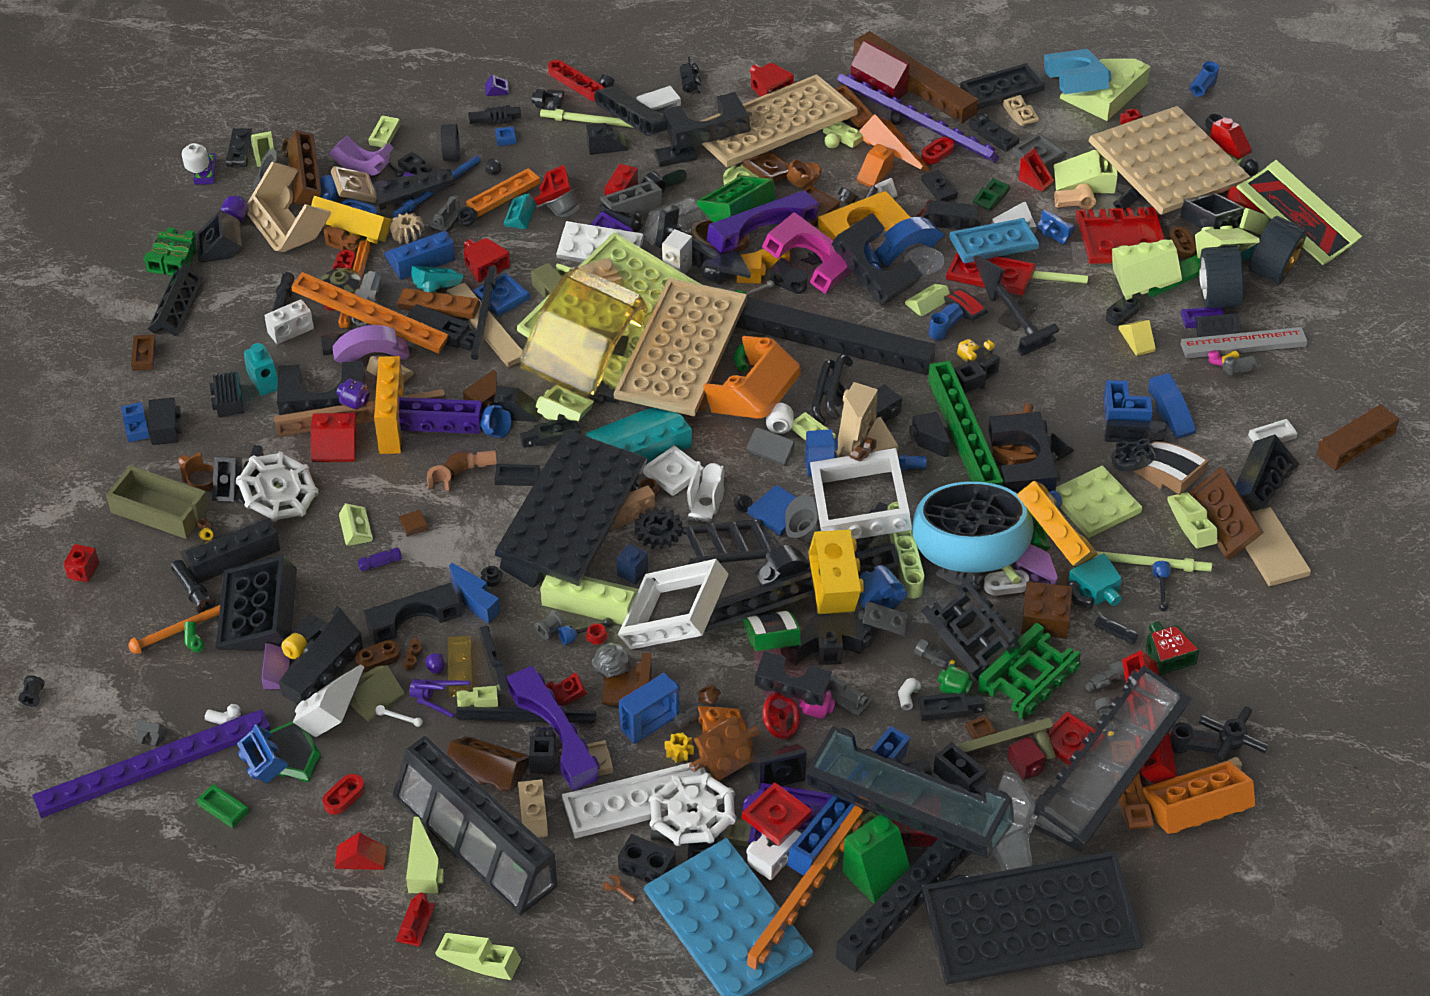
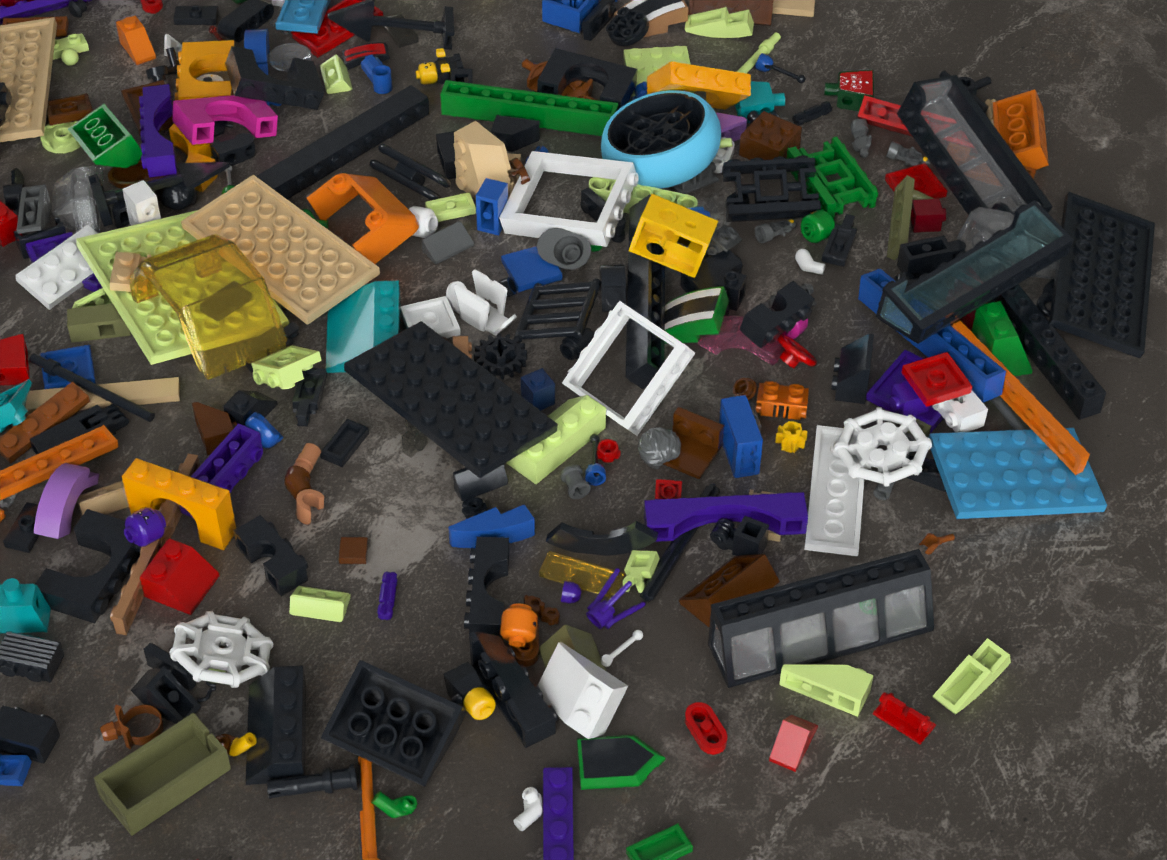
camera: 65 degrees left, 0 degrees up
(271, 765) = (611, 772): blue window -> none
(274, 666) = (486, 739): medium lavender slope -> none
(373, 491) = (260, 540): none -> black arch
(374, 638) = (518, 624): none -> orange head
(533, 807) = (807, 563): tan brick -> none
(648, 856) = (917, 507): black brick -> none
(724, 748) = (817, 401): dark orange plate -> none
(803, 174) = (104, 88): dark orange hair -> none
(884, 132) = (103, 19): wedge -> none
(980, 727) = (874, 234): reddish brown tile -> none

